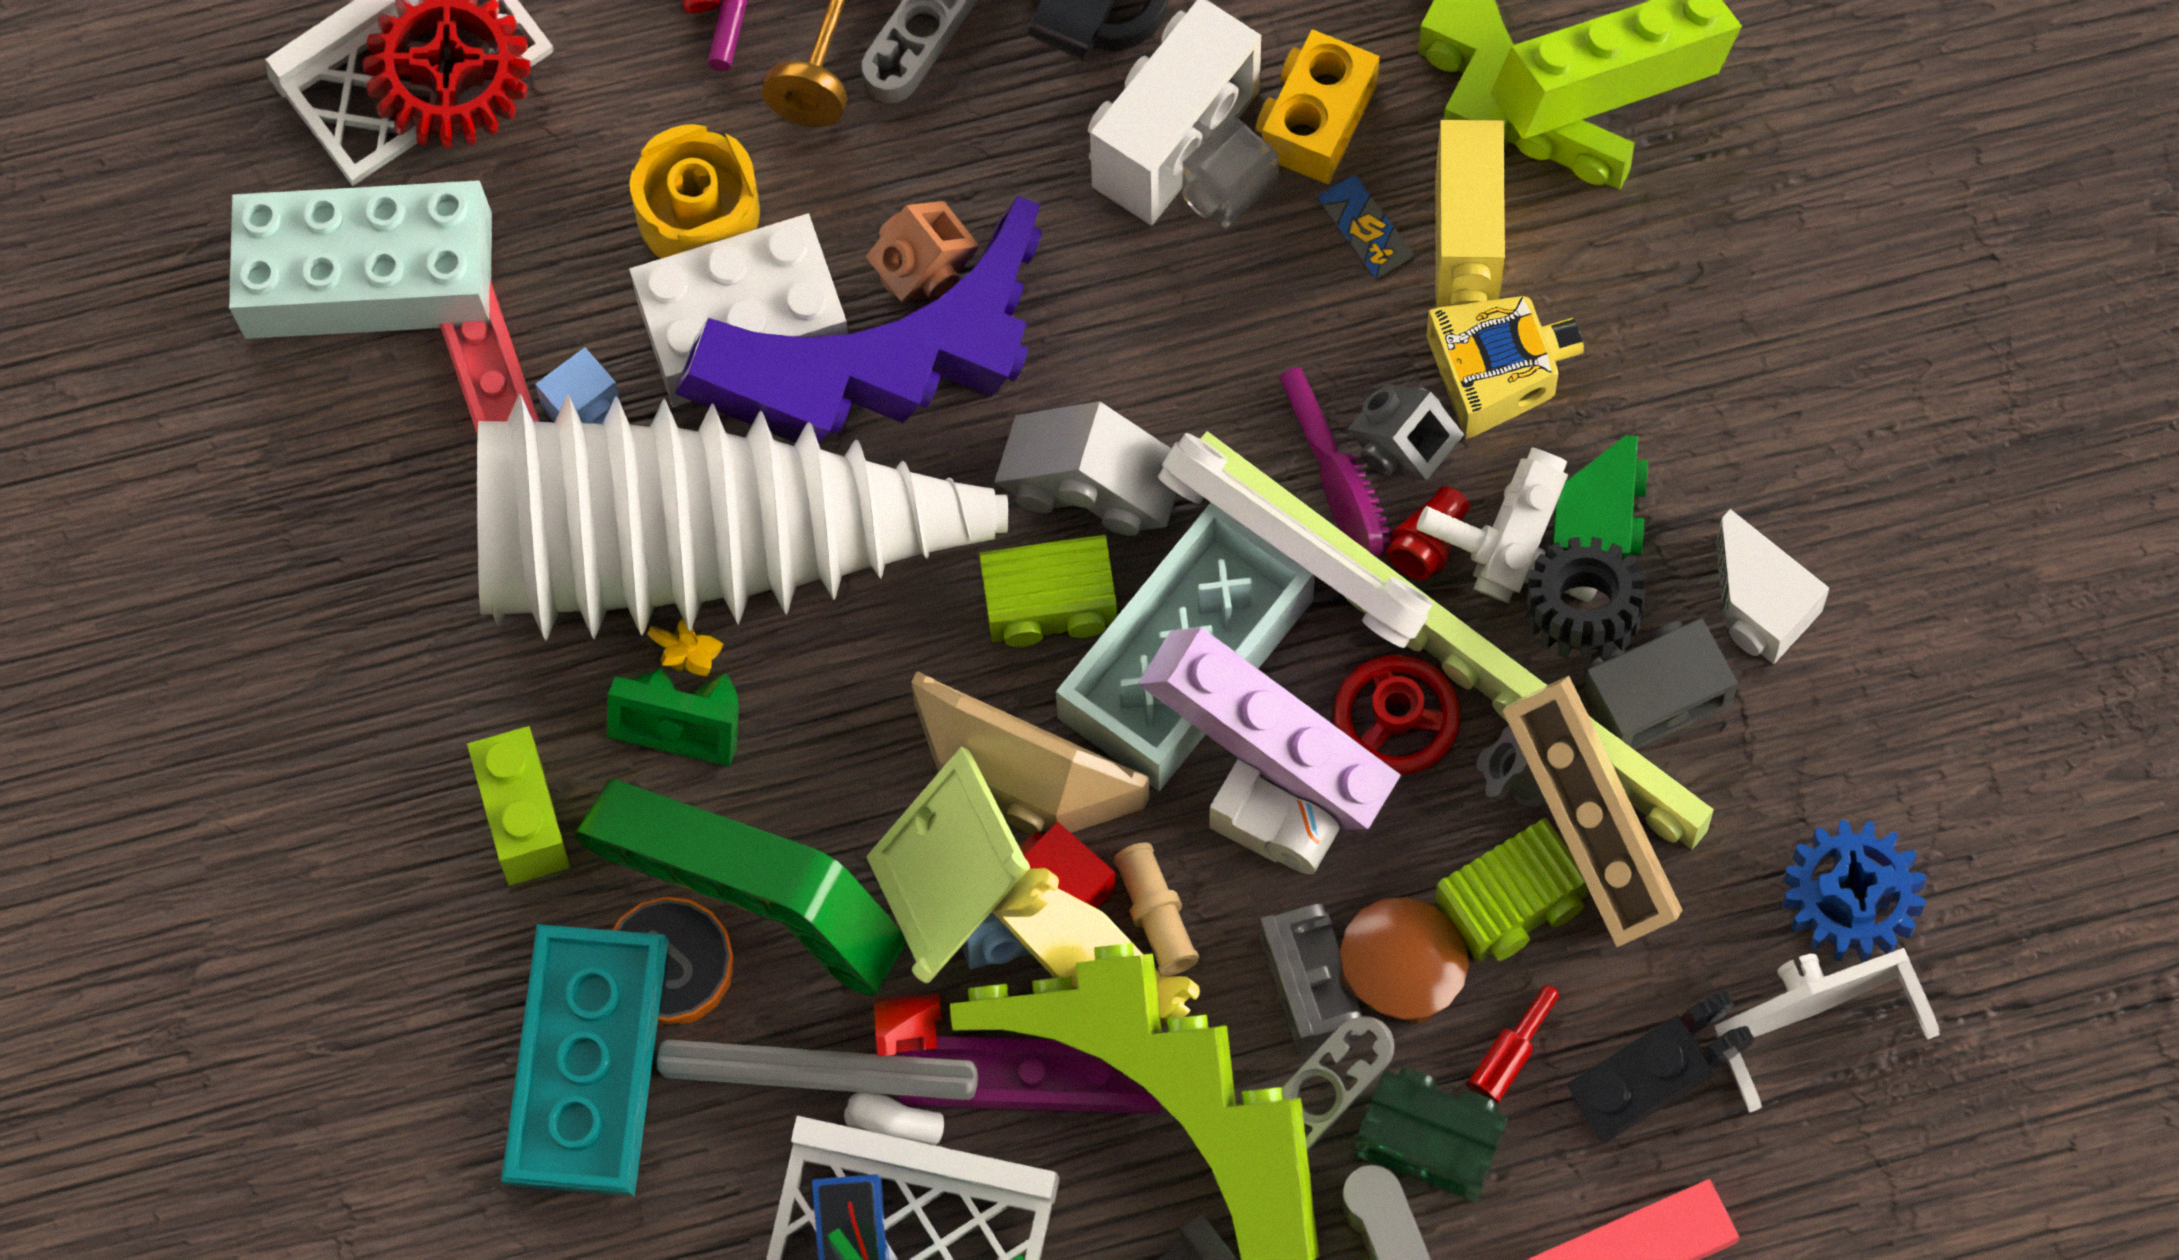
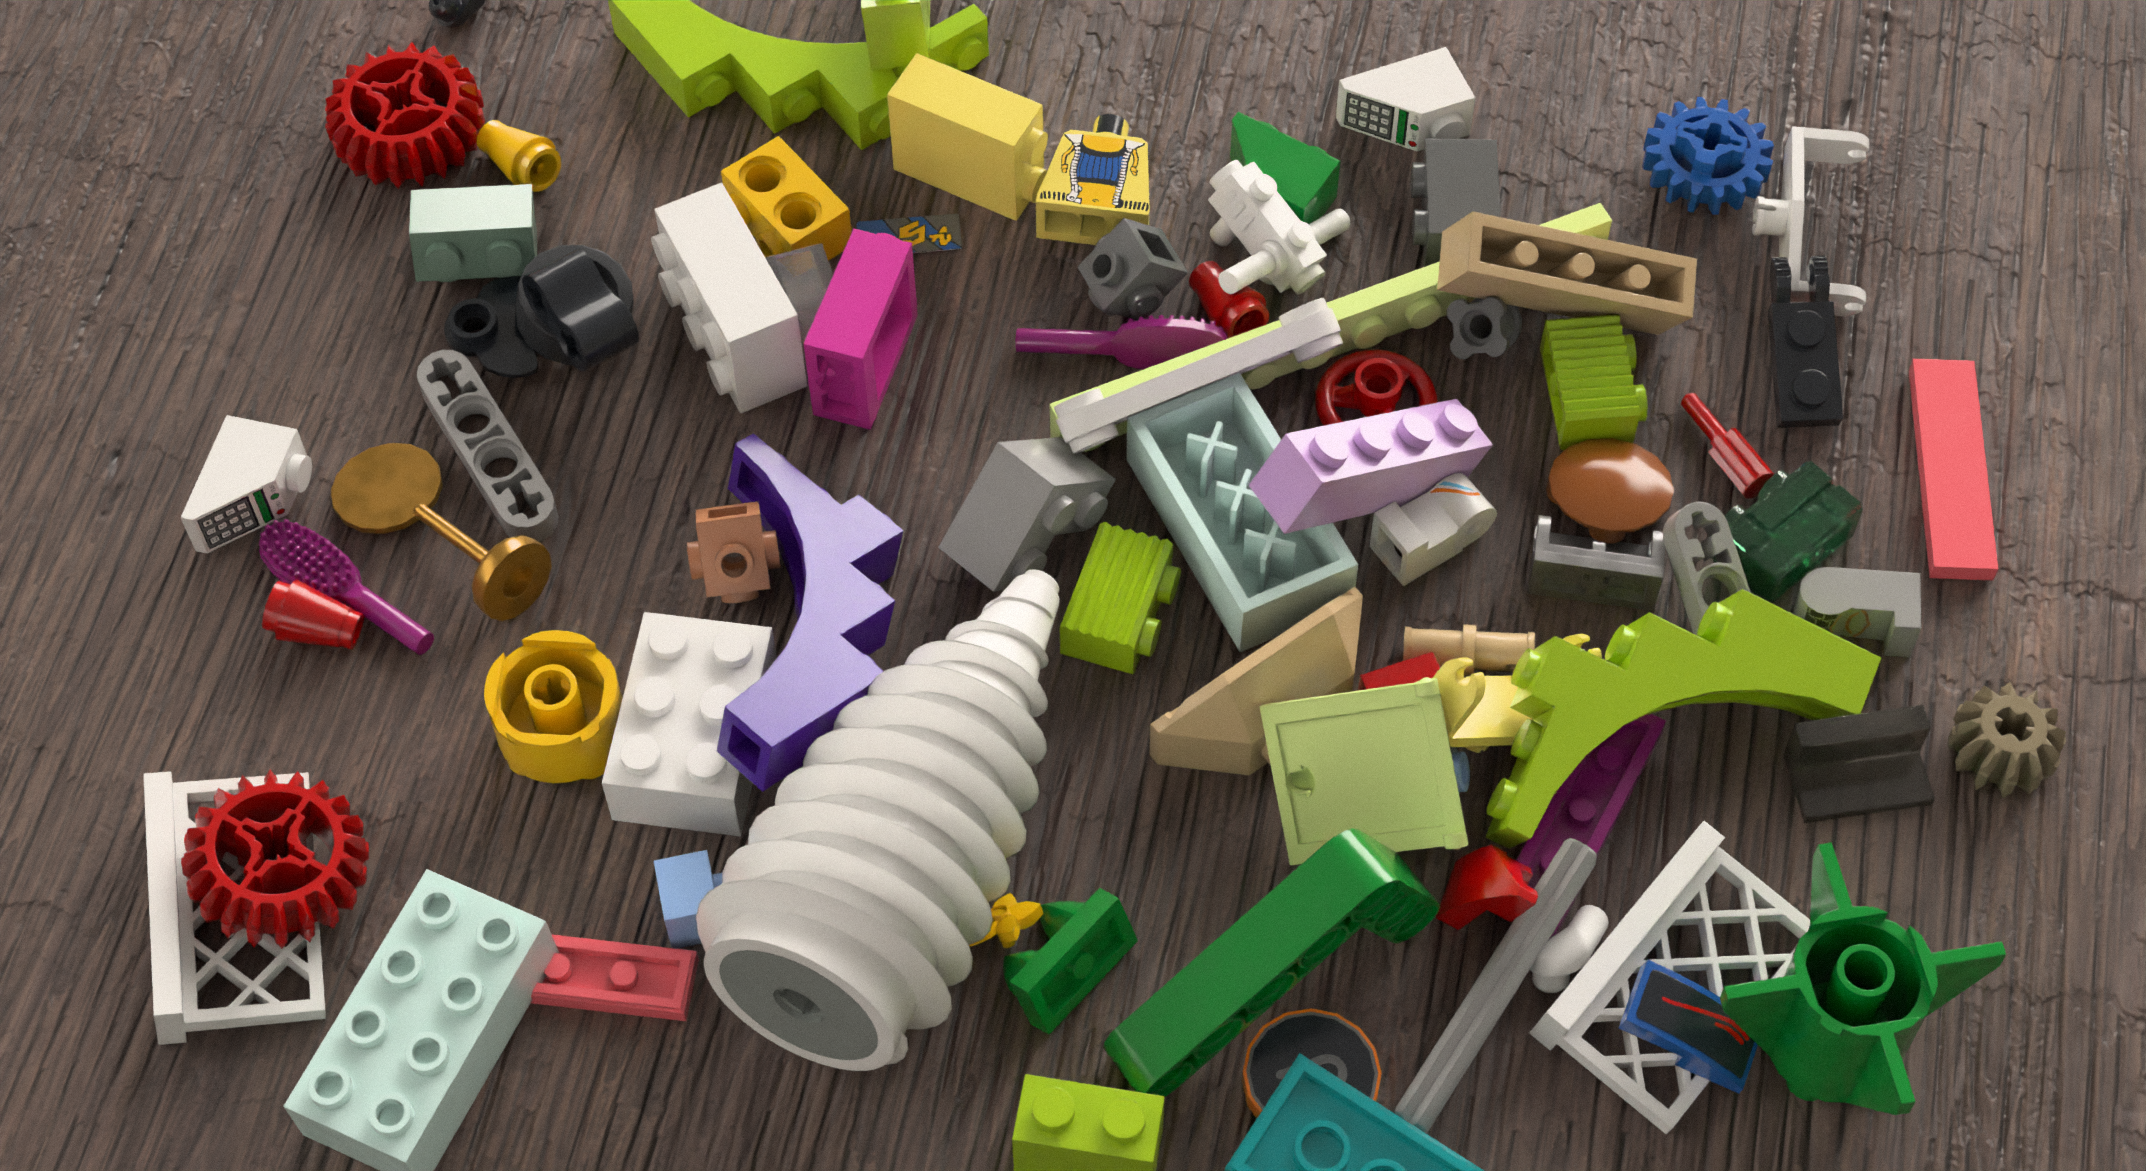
camera: 65 degrees left, 10 degrees down
(1205, 234) = (861, 328): none -> dark pink window
(1590, 569) = (1374, 226): black tyre -> none

